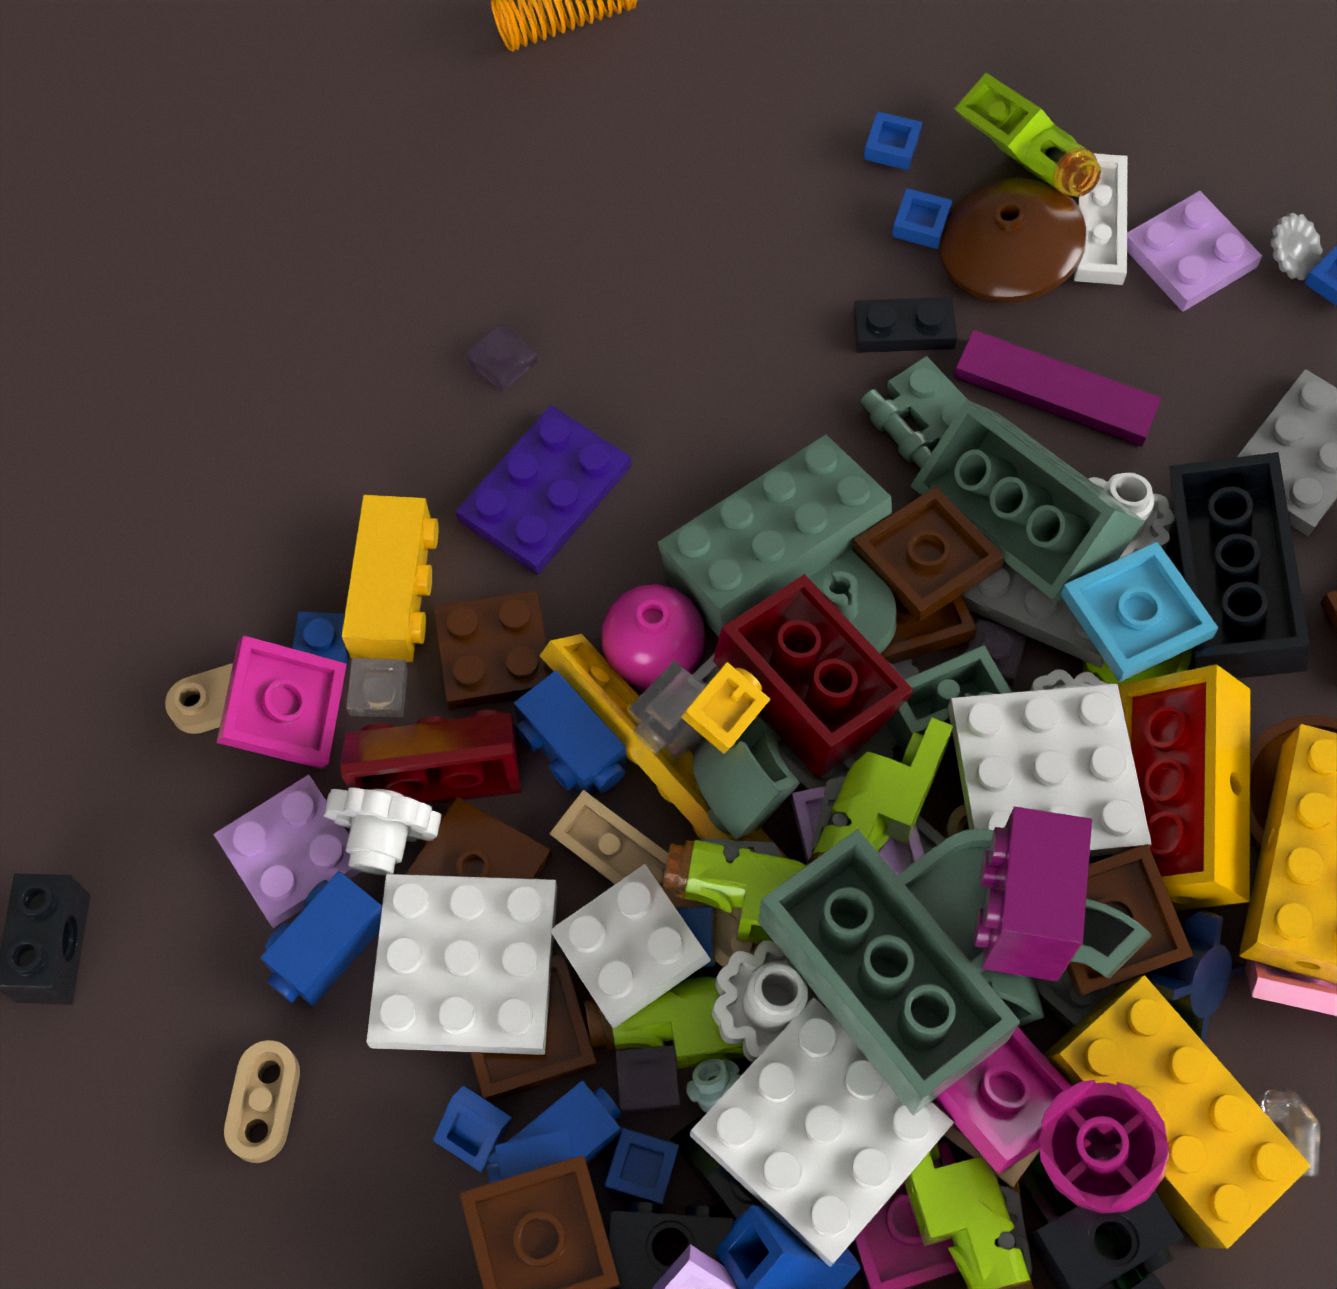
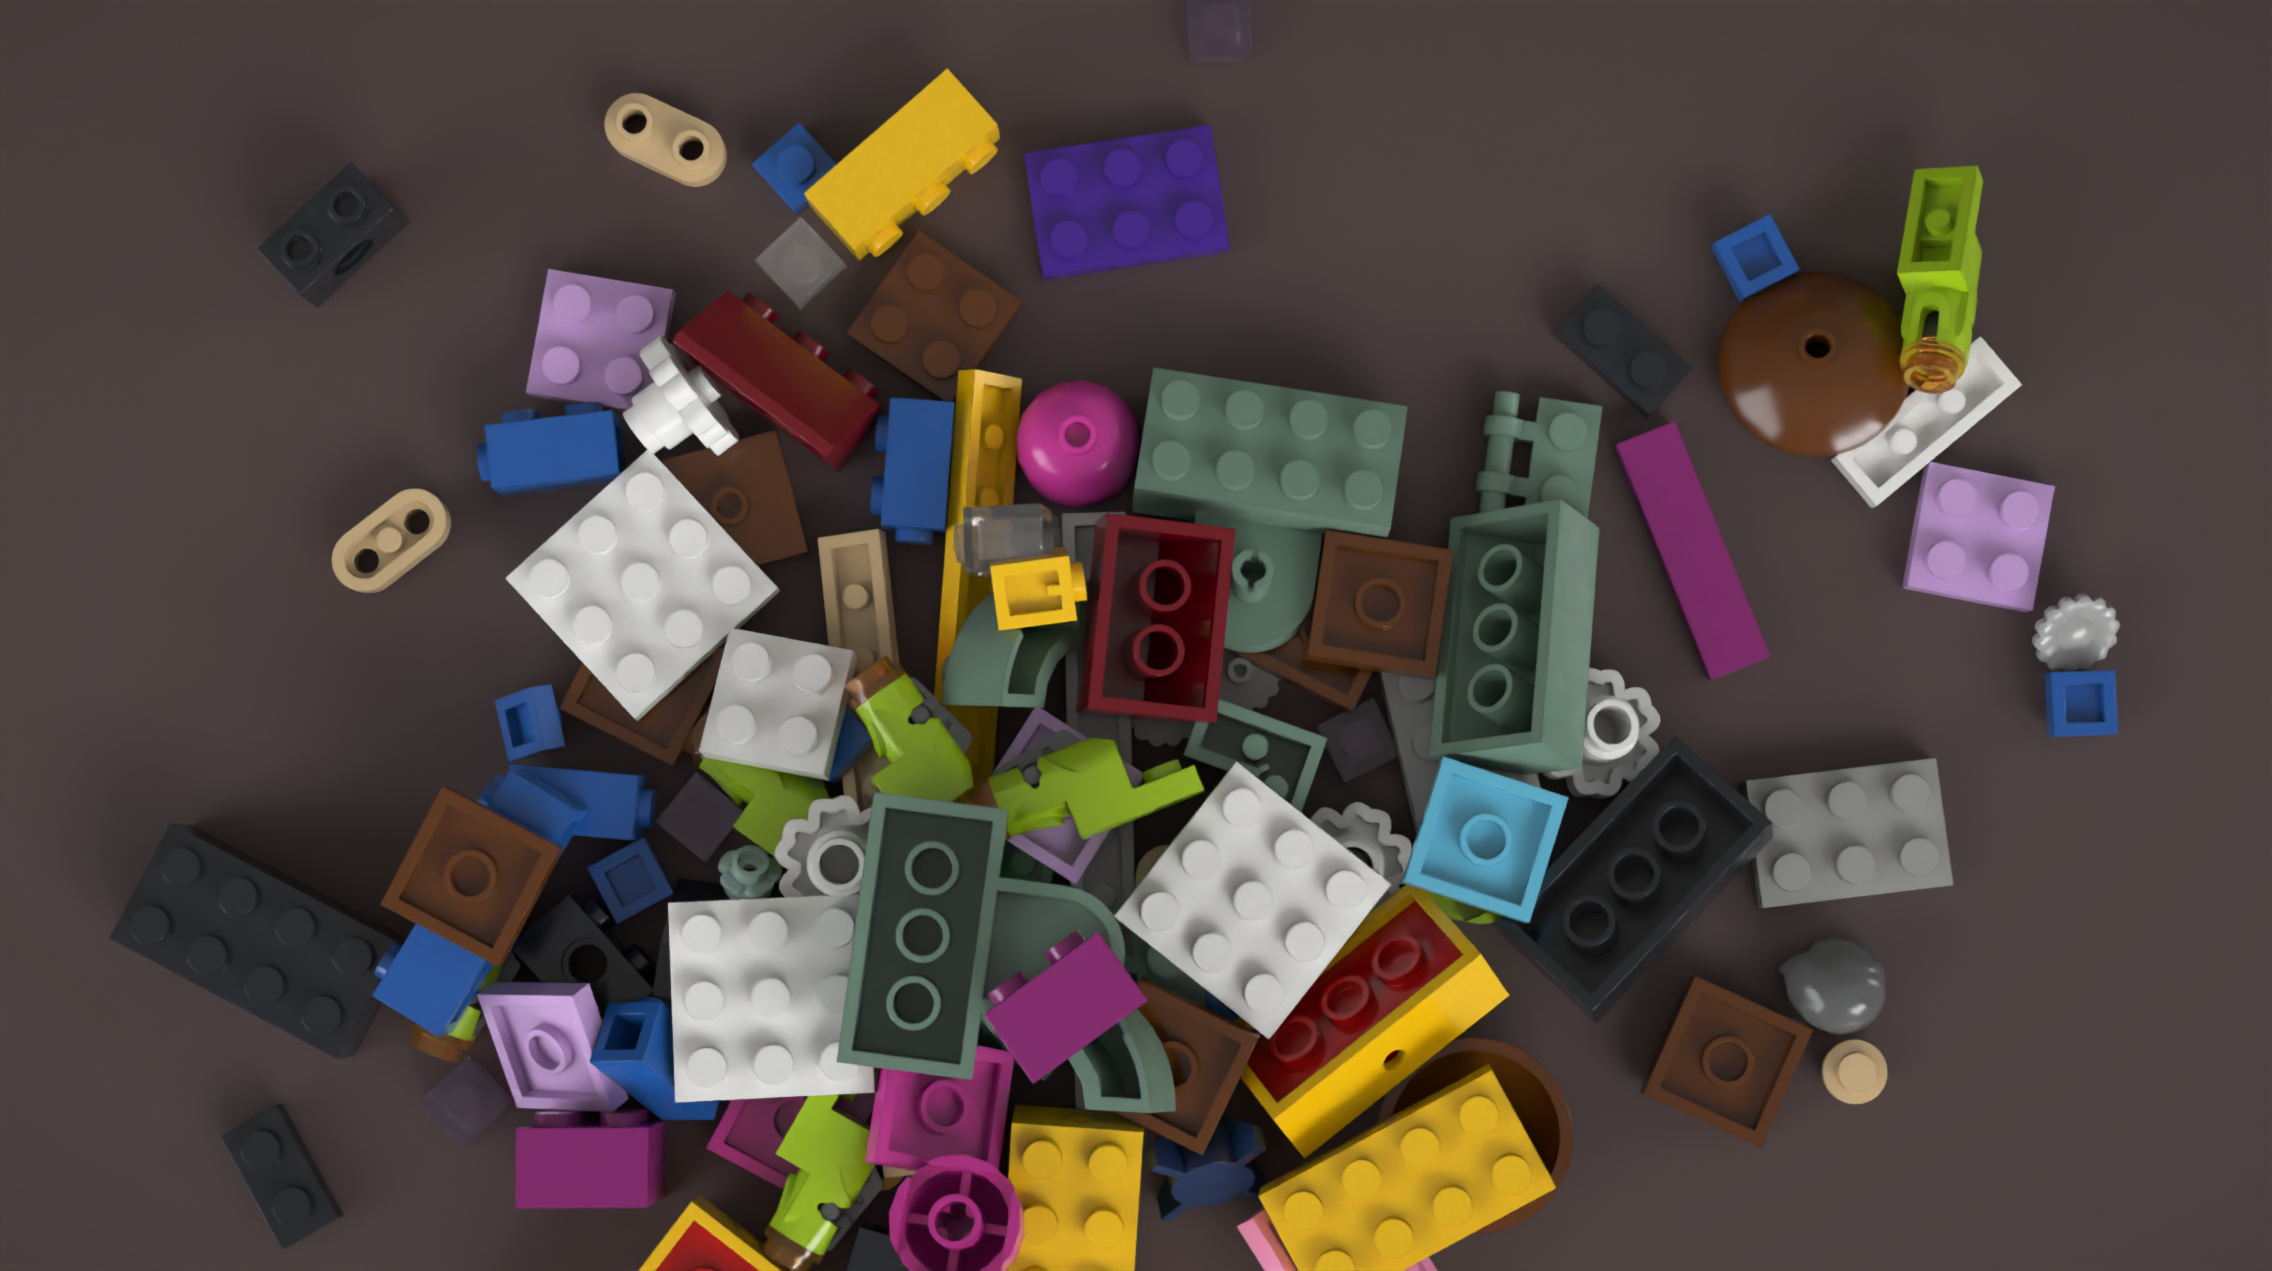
camera: 45 degrees right, 20 degrees up
(282, 702) = (703, 204): dark pink plate -> none
(892, 140) = (1820, 145): blue plate -> none

